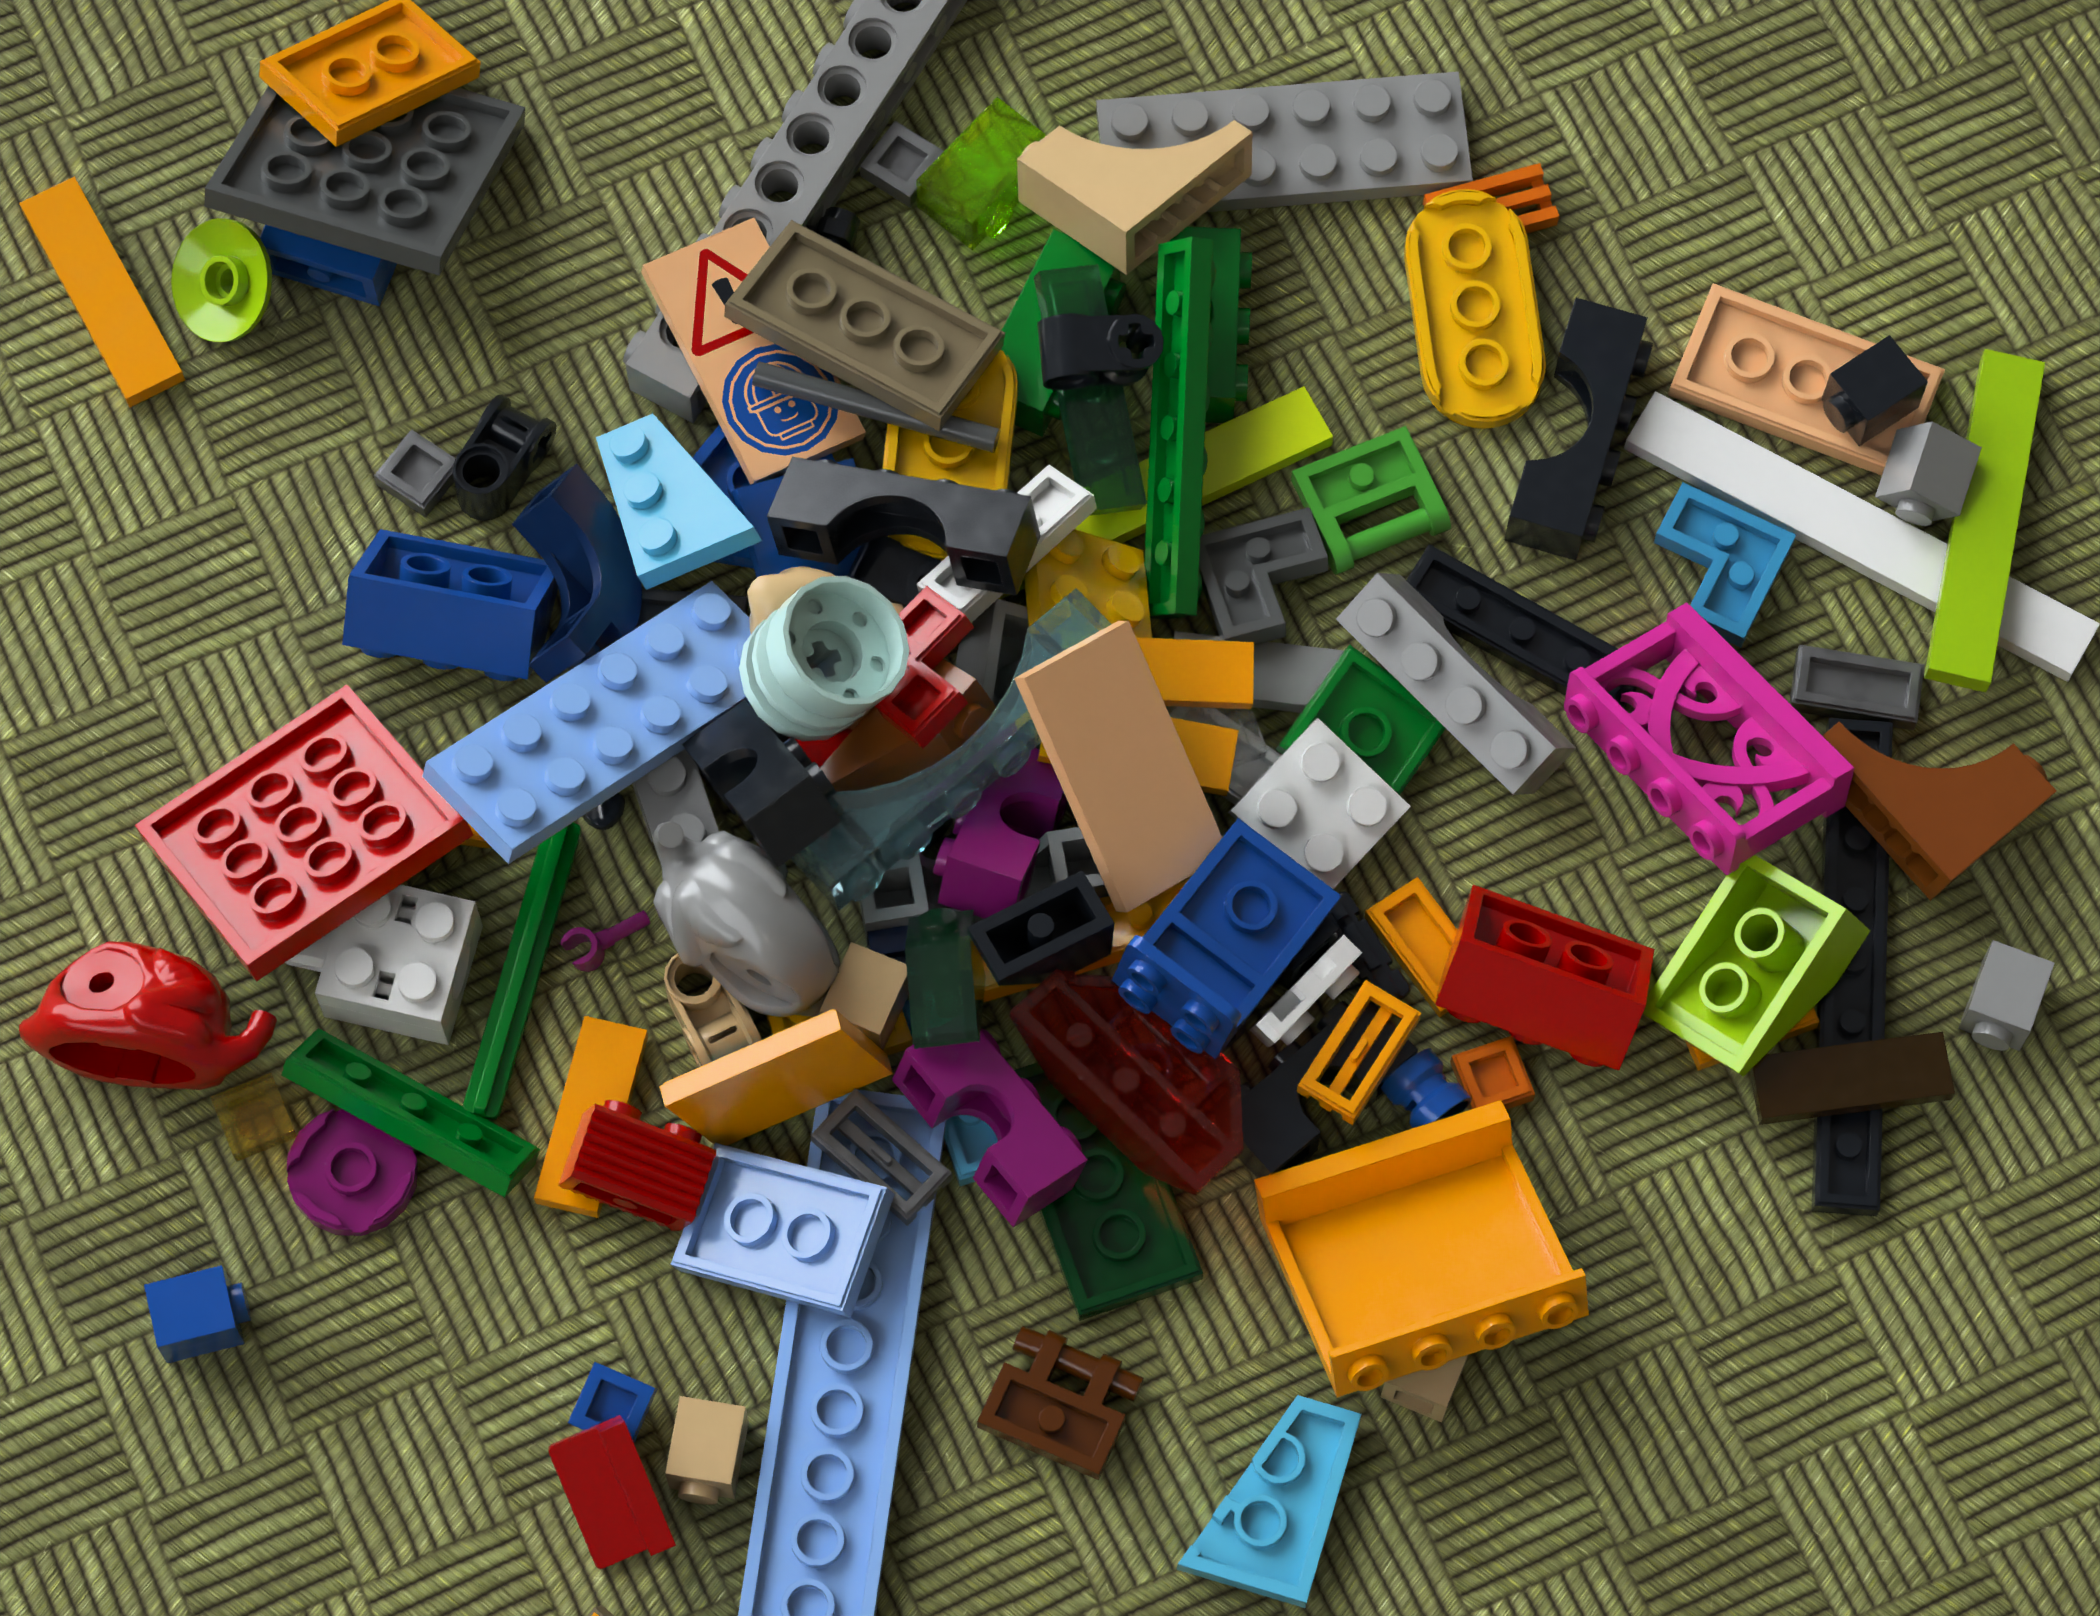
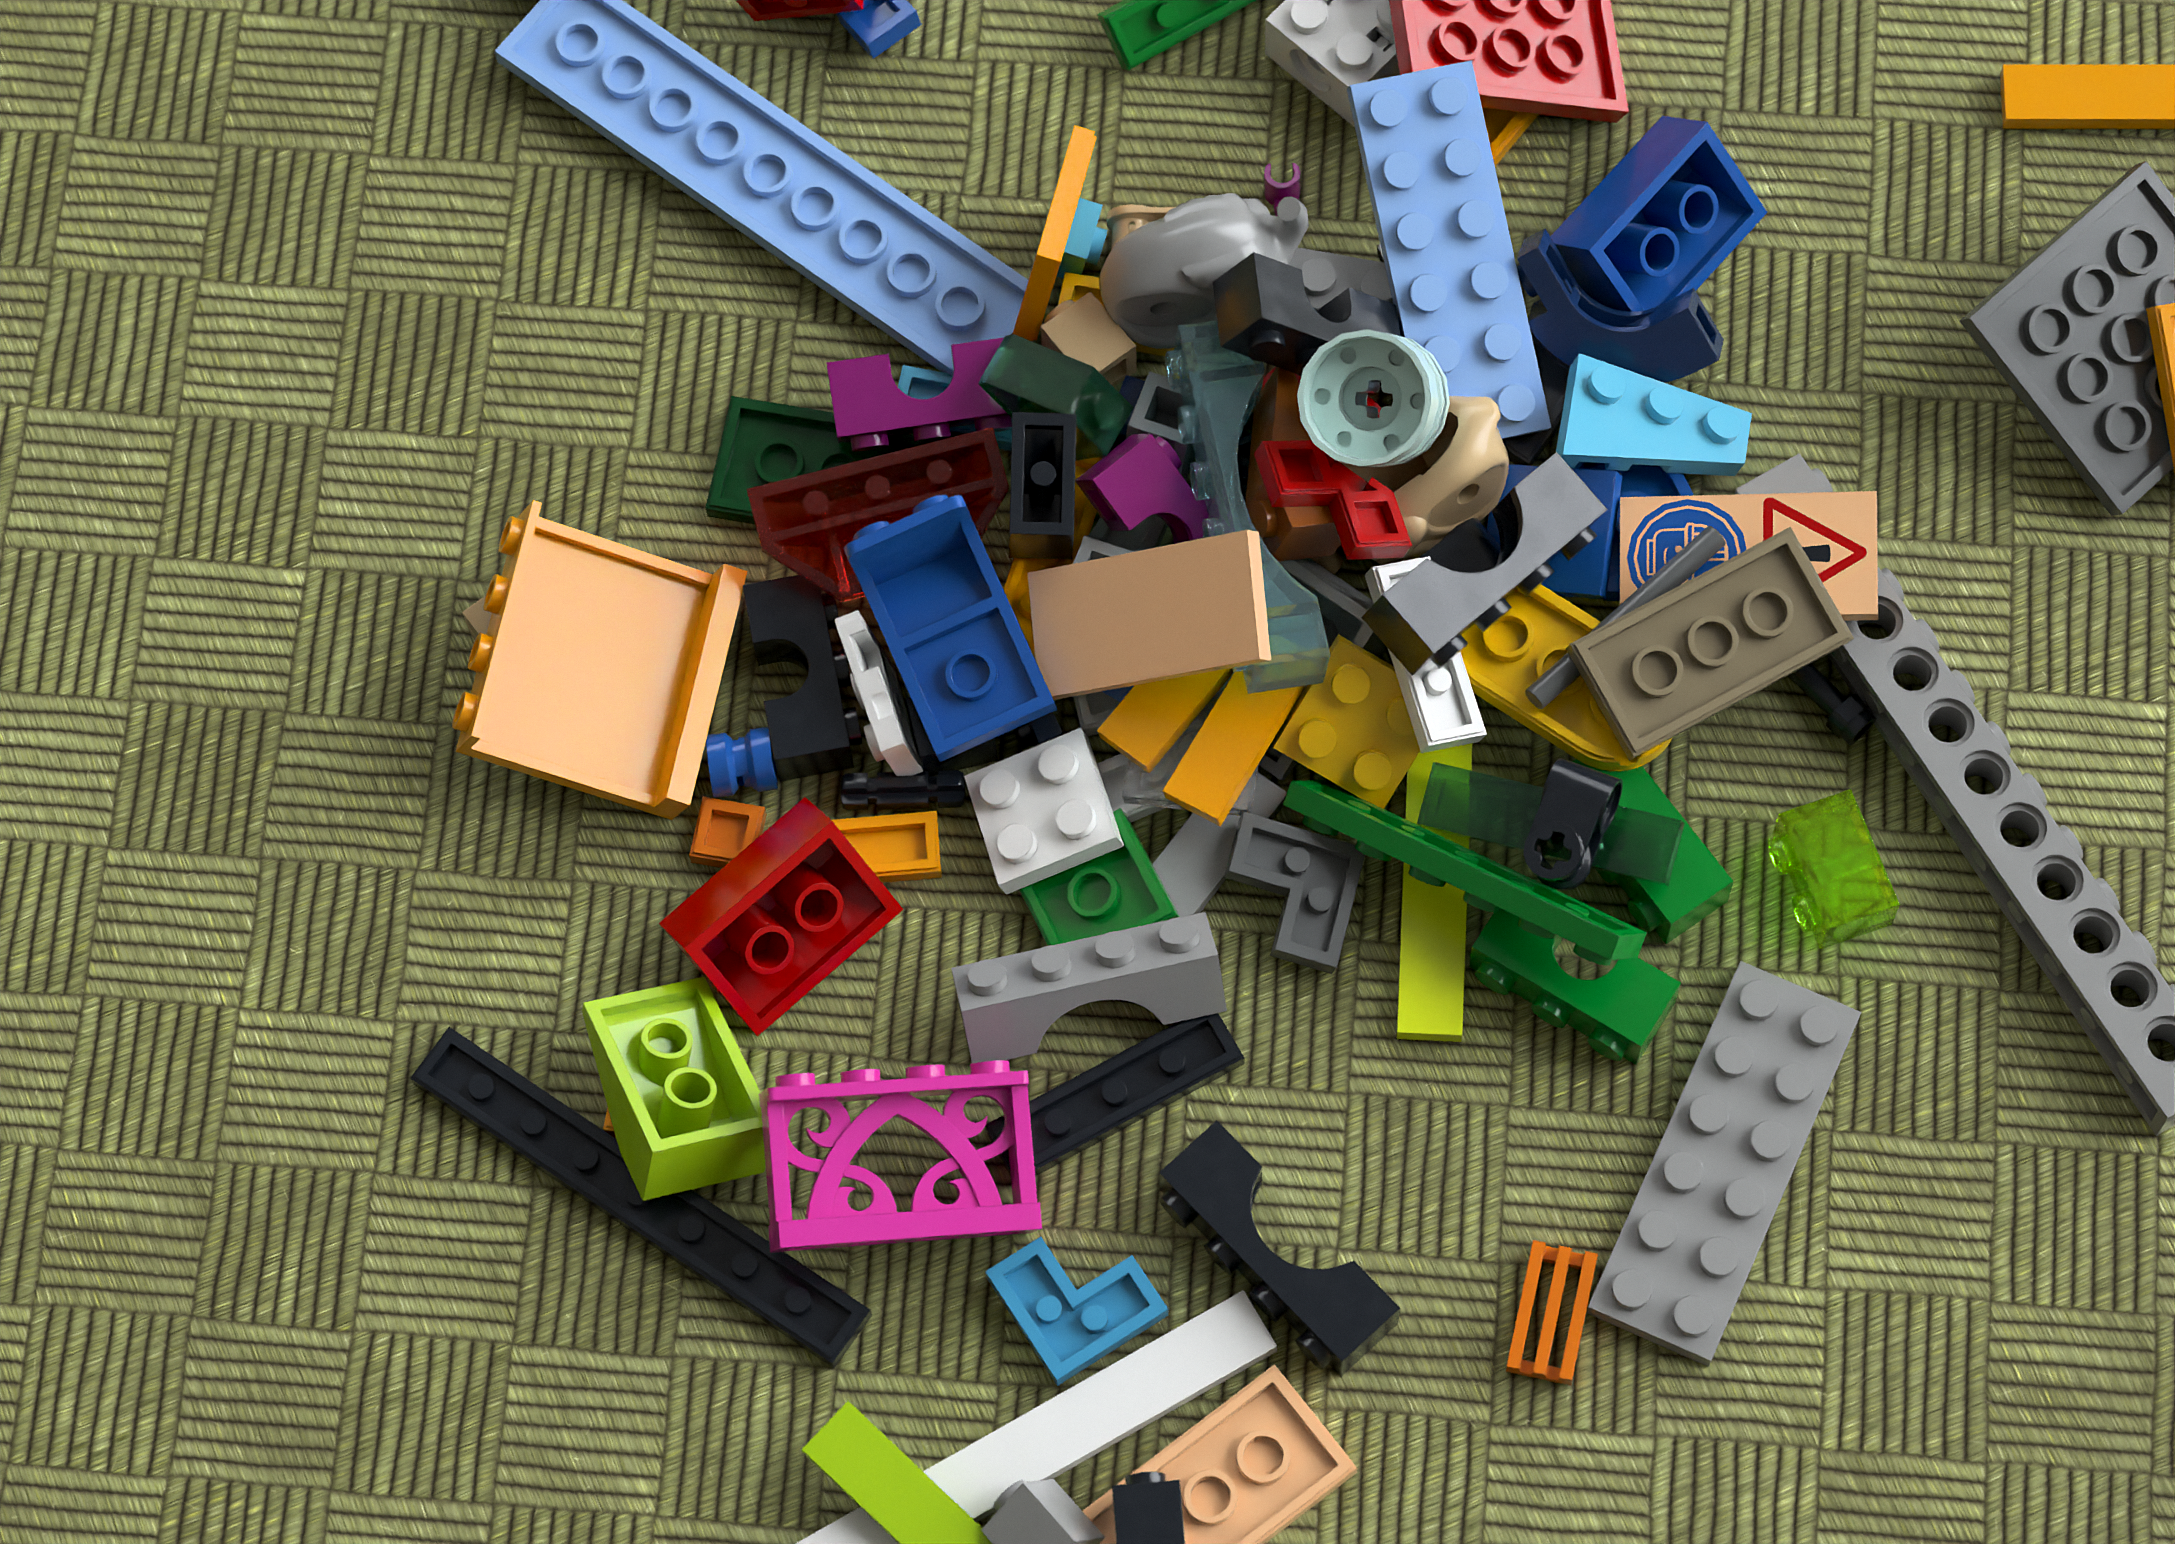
camera: 125 degrees right, 0 degrees up
(204, 277) = (2066, 180): lime dish -> none
(417, 473) = (1803, 265): flat silver tile -> none
(503, 447) = (1780, 337): black piece -> none
(521, 973) = (1276, 116): green axle -> none
(600, 1070) = (1133, 122): light orange tile -> none
(638, 1165) = (1042, 118): red brick -> none
(706, 1450) = (798, 64): tan brick -> none
(784, 1230) = (937, 200): light blue tile -> none
(899, 162) = (1890, 805): flat silver plate -> none
(921, 1193) = (958, 321): flat silver tile -> none
(1055, 1420) = (661, 328): reddish brown plate -> none
(1129, 198) = (1715, 949): tan arch -> none
(1280, 1510) = (470, 453): medium azure wing -> none
(1331, 1097) = (820, 749): light orange tile -> none
(1362, 482) = (1337, 1031): bright green plate -> none
(1474, 309) = (1455, 1233): yellow tile -> none
(1852, 1078) = (530, 1116): dark brown tile -> none
(1856, 686) = (889, 1356): flat silver tile -> none
(1939, 817) = (706, 1335): dark orange arch -> none
(2005, 997) = (520, 1296): light grey brick -> none

